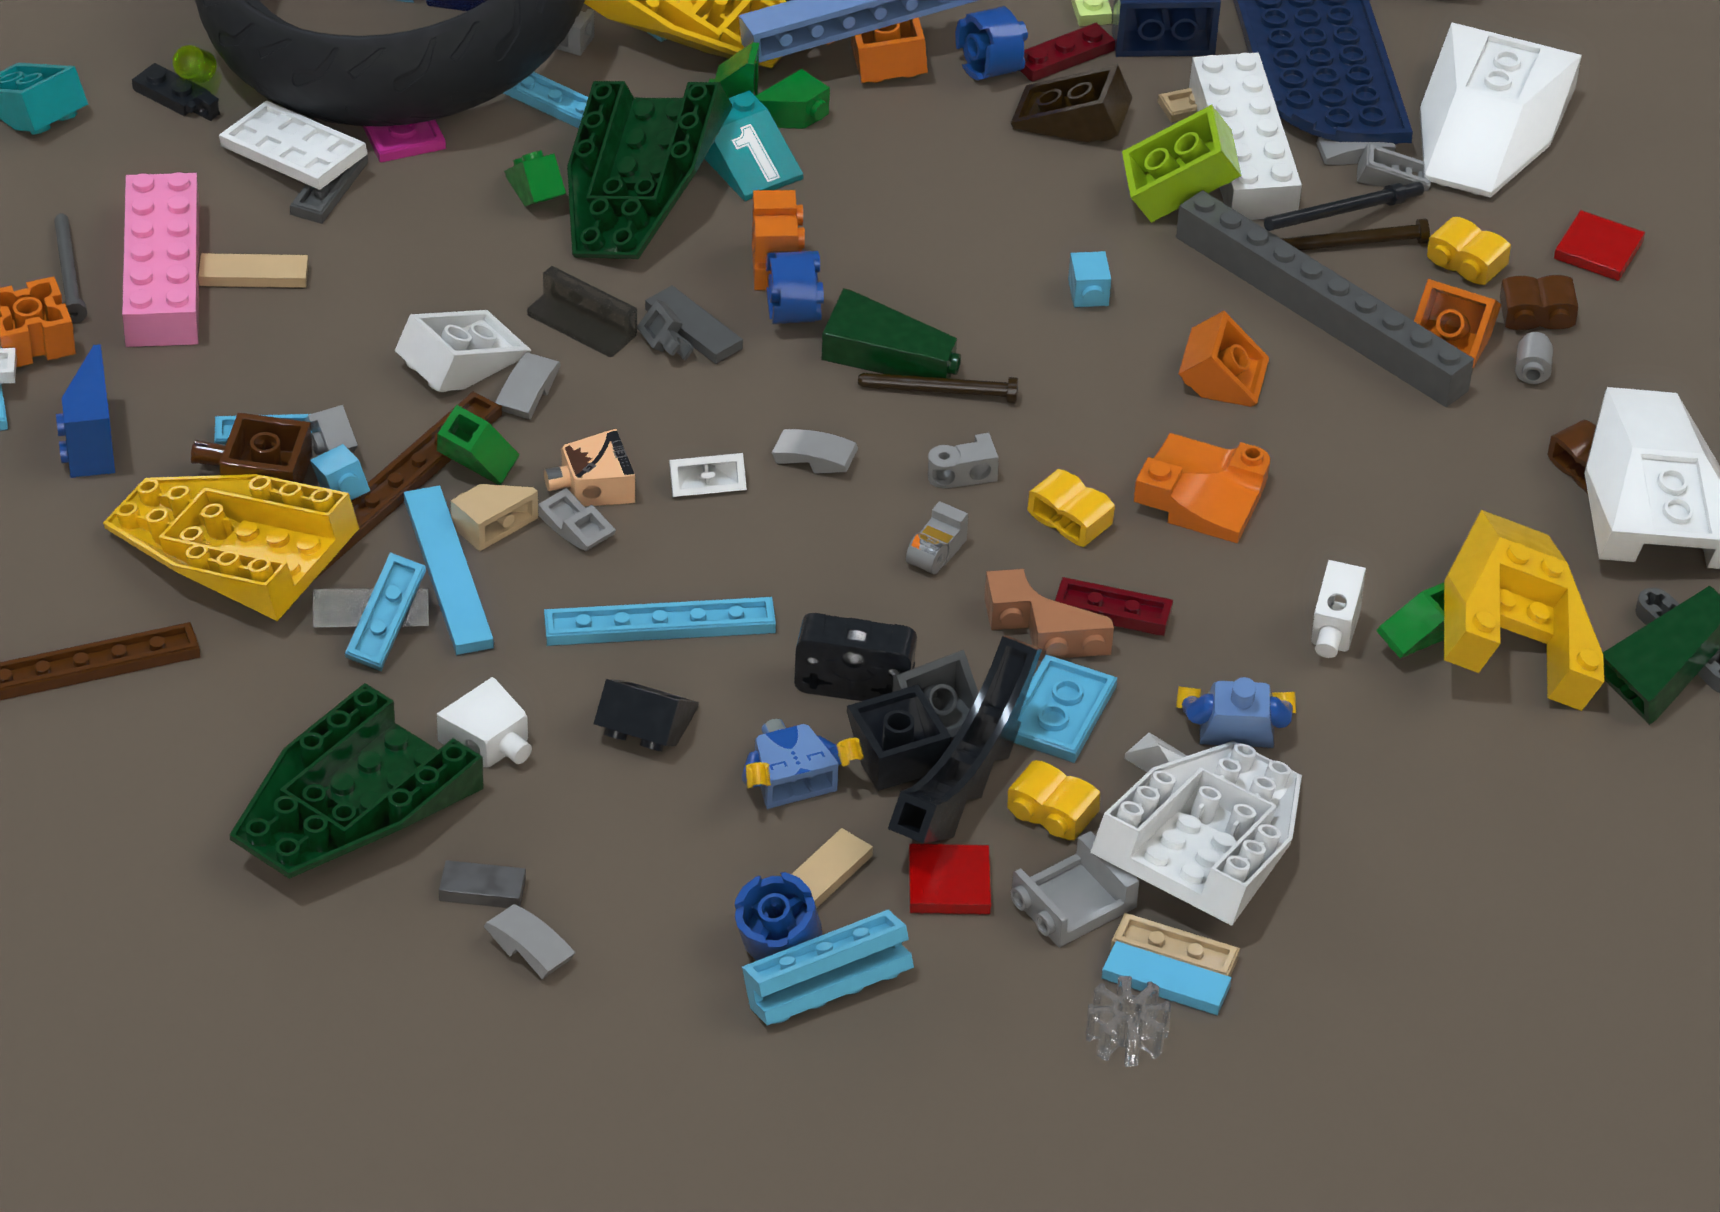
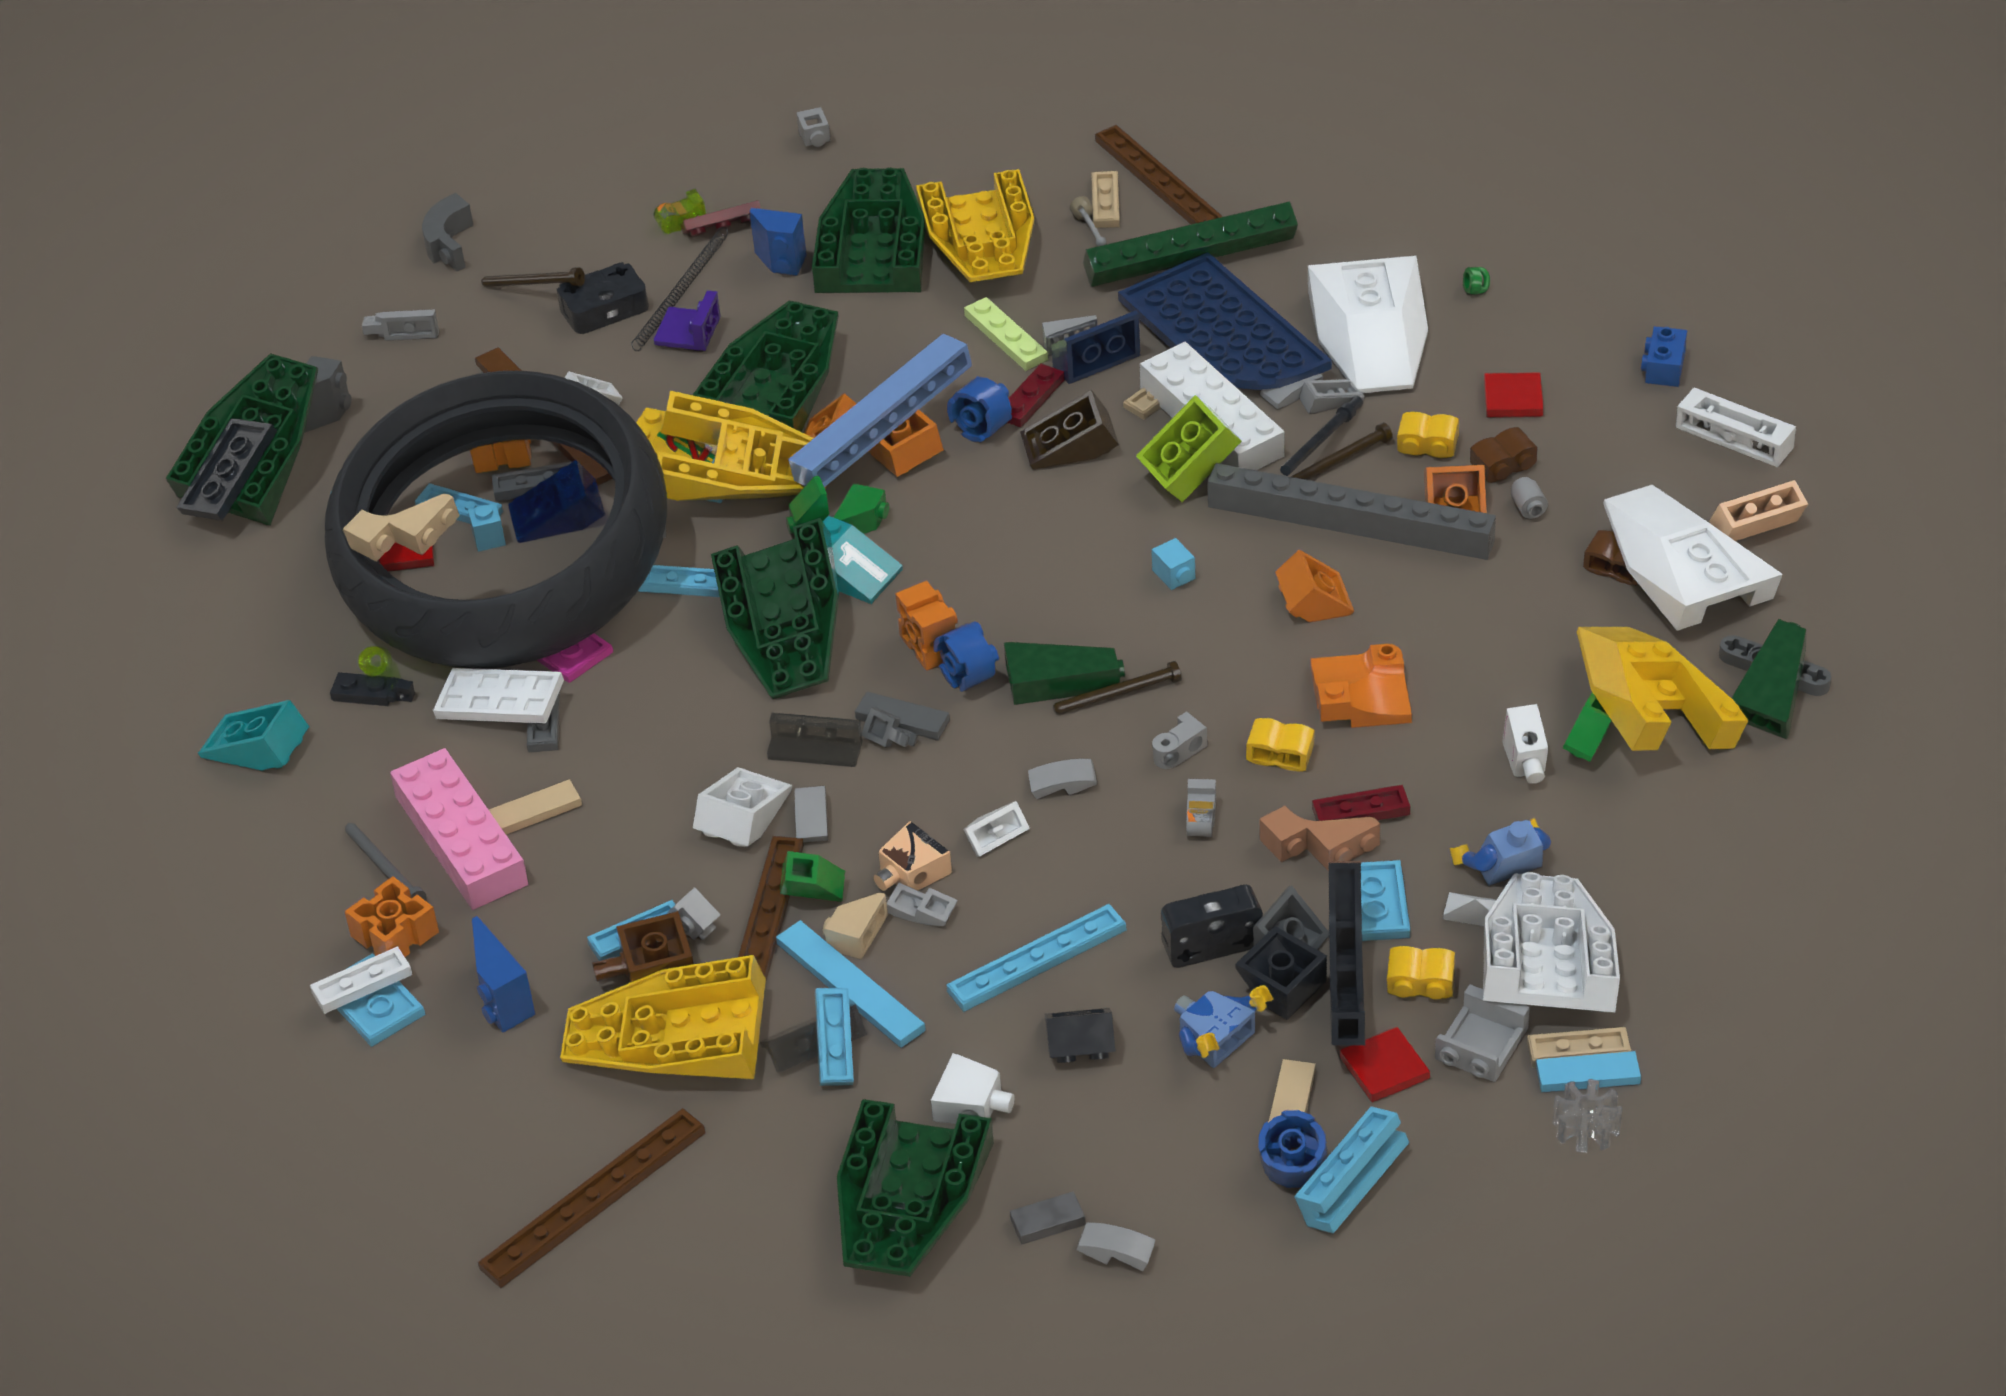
camera: 20 degrees left, 0 degrees up
(340, 471) = (721, 941): medium azure brick -> none
(536, 178) = (706, 648): green slope -> none
(1638, 108) = (1473, 280): none -> green tile

